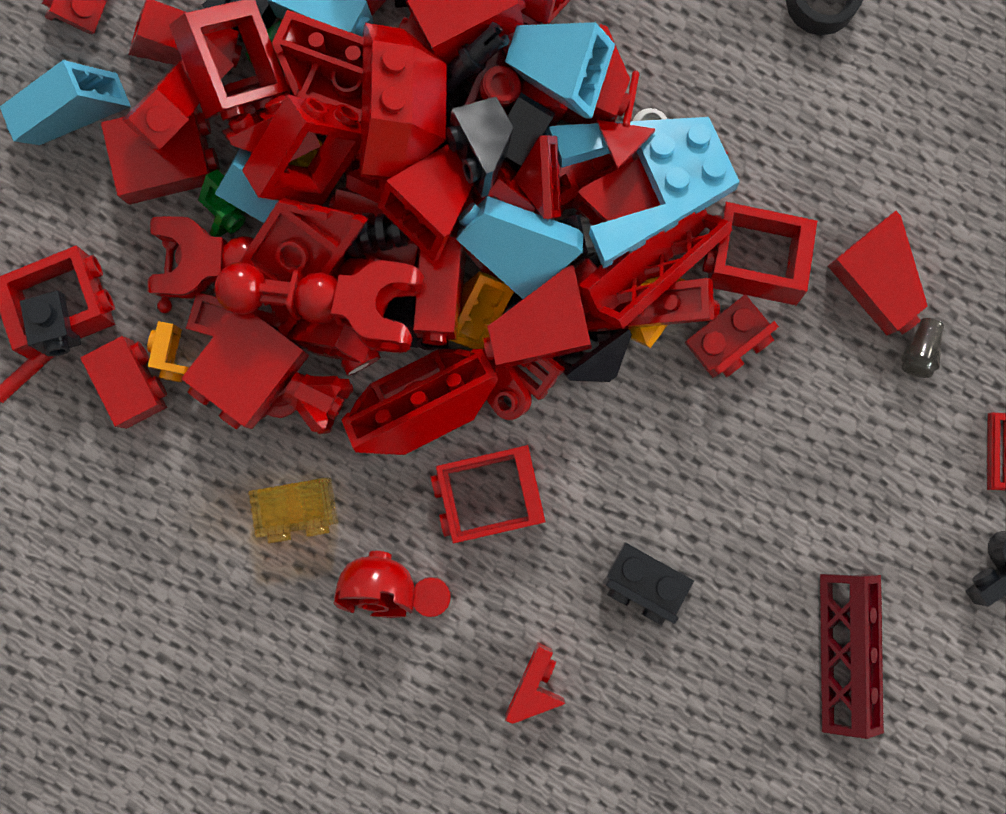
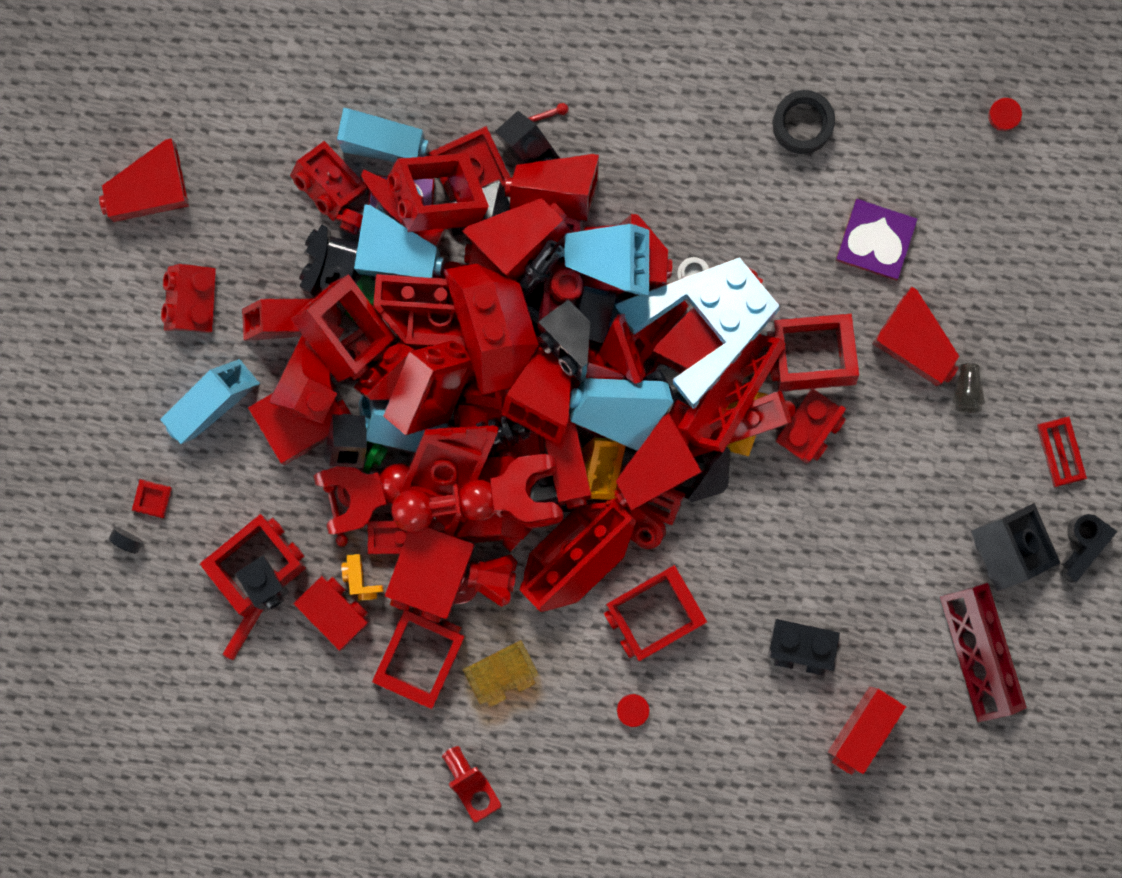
camera: 20 degrees left, 0 degrees up
(178, 492) = (405, 688): none -> red window
(193, 188) = (346, 441): none -> black slope
(217, 623) = (469, 782): none -> red bracket
(376, 586) = (587, 714): red cylinder -> none
(529, 696) = (735, 765): red slope -> none
(624, 138) = (677, 297): red piece -> none
(691, 706) = (865, 731): none -> red brick
(867, 151) = (876, 239): none -> tile
(924, 545) = (1015, 547): none -> black slope

